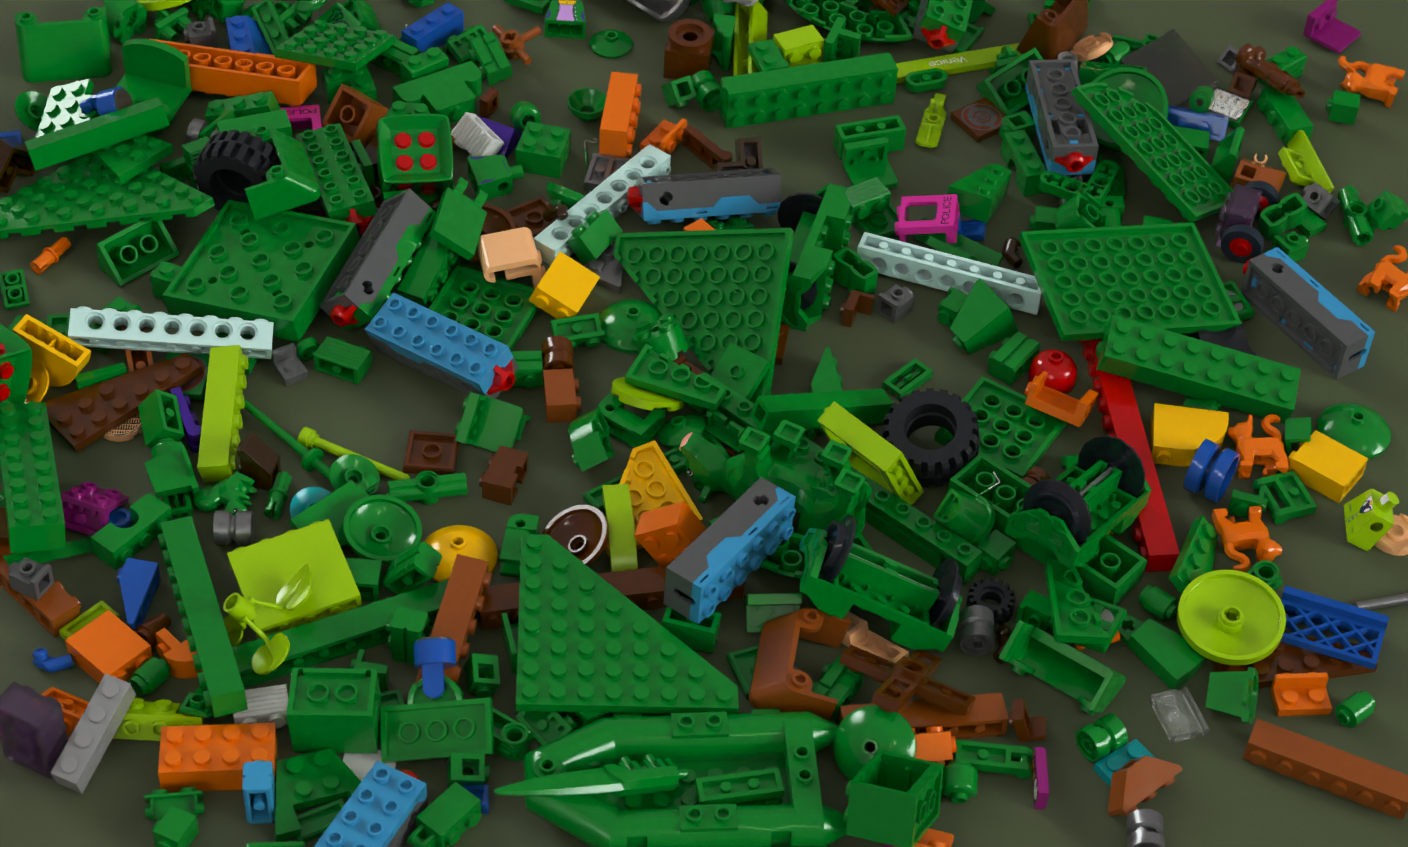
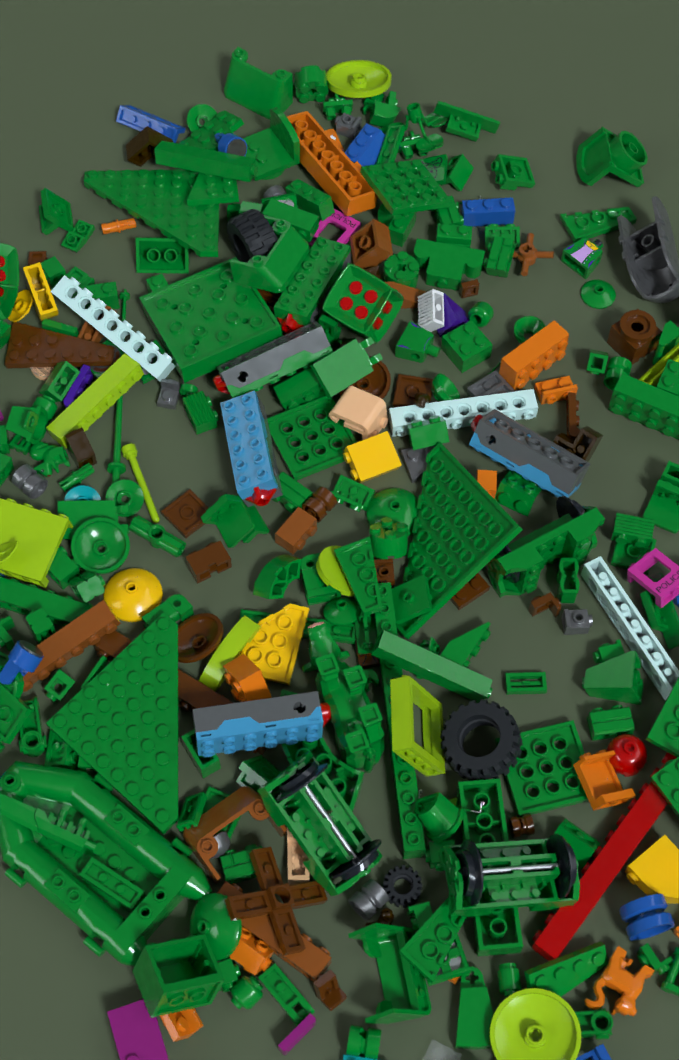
camera: 45 degrees right, 15 degrees up
(750, 684) = (191, 811): none -> green tile

